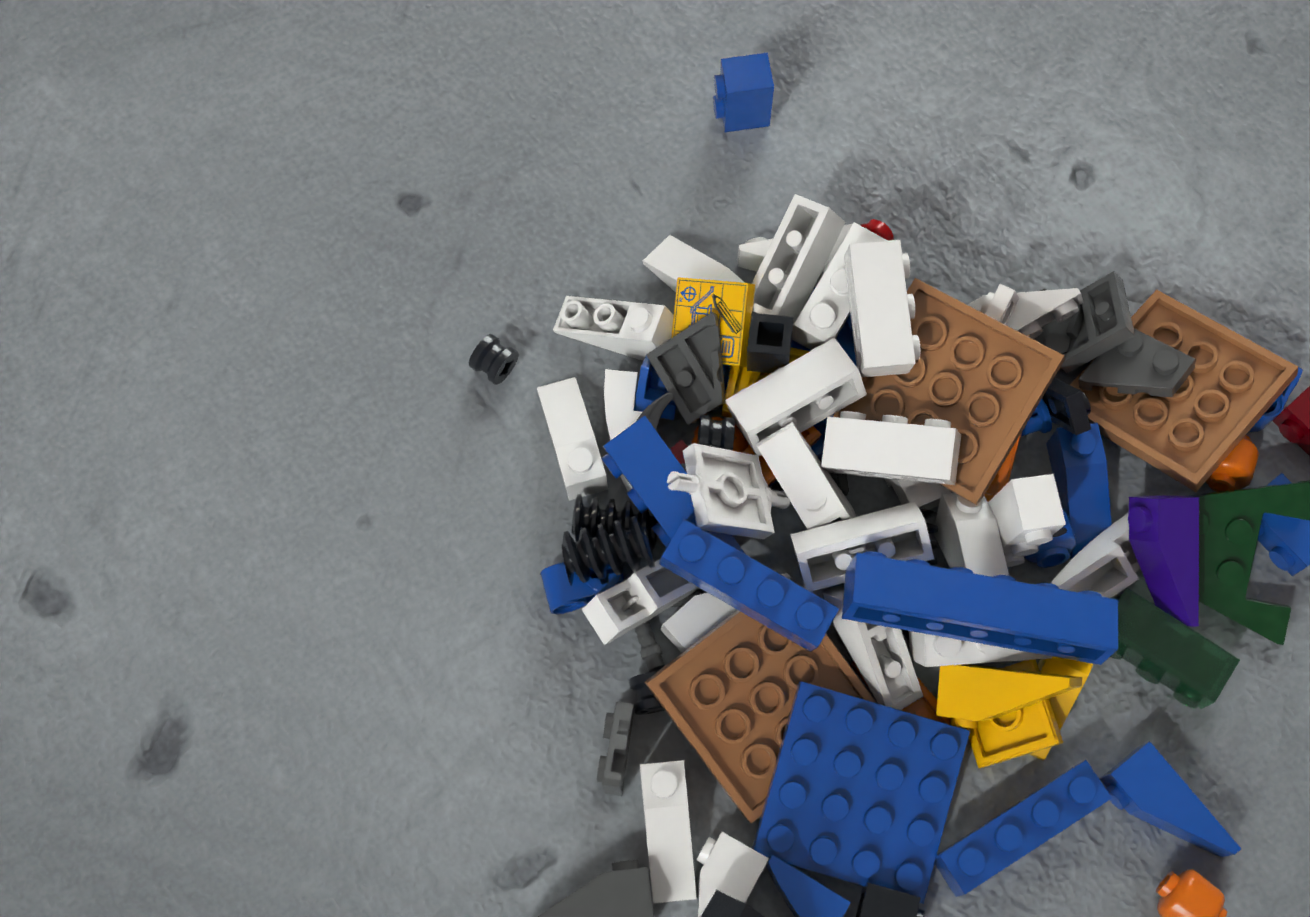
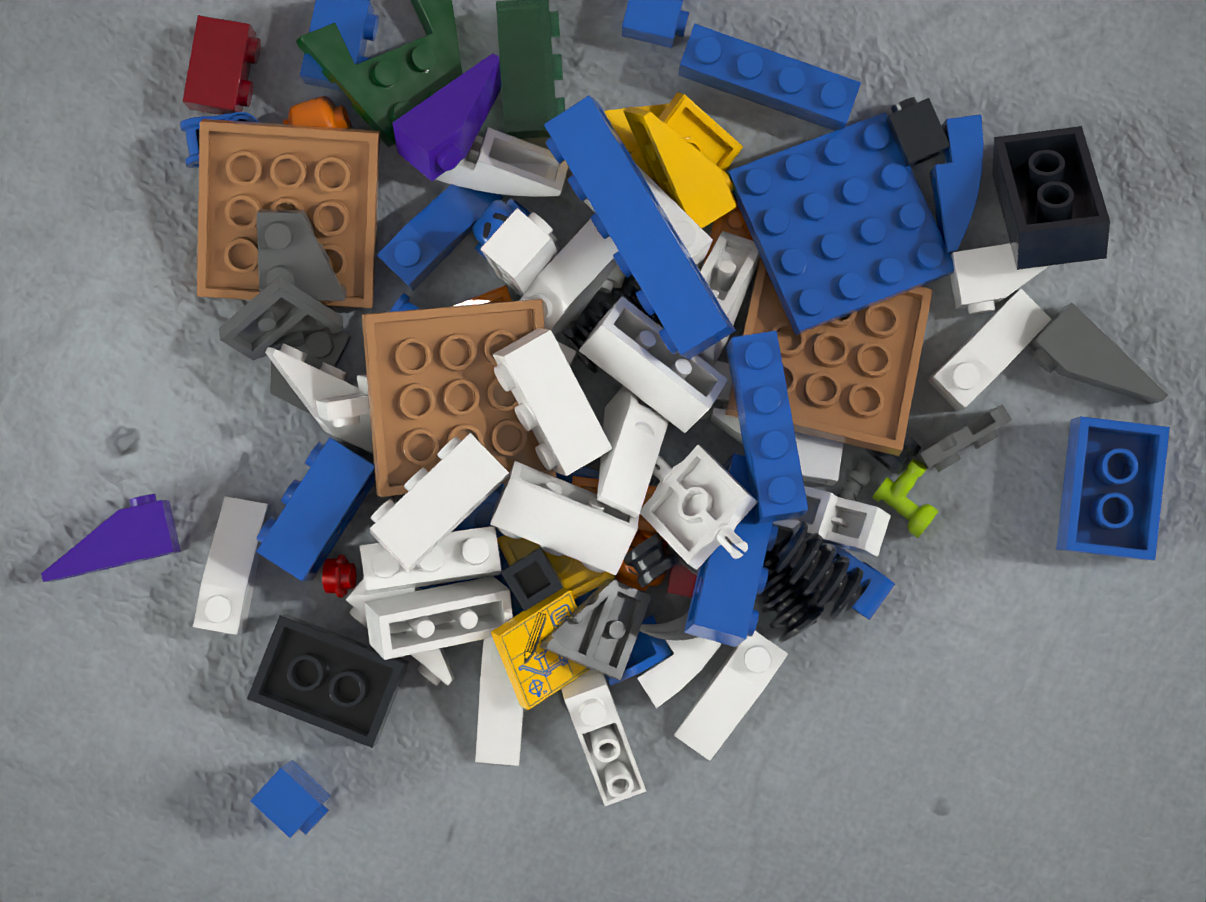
camera: 130 degrees left, 15 degrees up
(482, 833) = (1112, 488): none -> blue brick
(493, 359) = (717, 816): black wheel -> none
(616, 667) = (895, 496): none -> lime piece
(817, 161) = (327, 680): none -> black brick
(935, 173) = (231, 567): none -> white slope
(936, 240) = (317, 509): none -> blue brick
(1014, 121) = (124, 538): none -> dark purple slope
(1068, 407) = (387, 286): black plate -> none

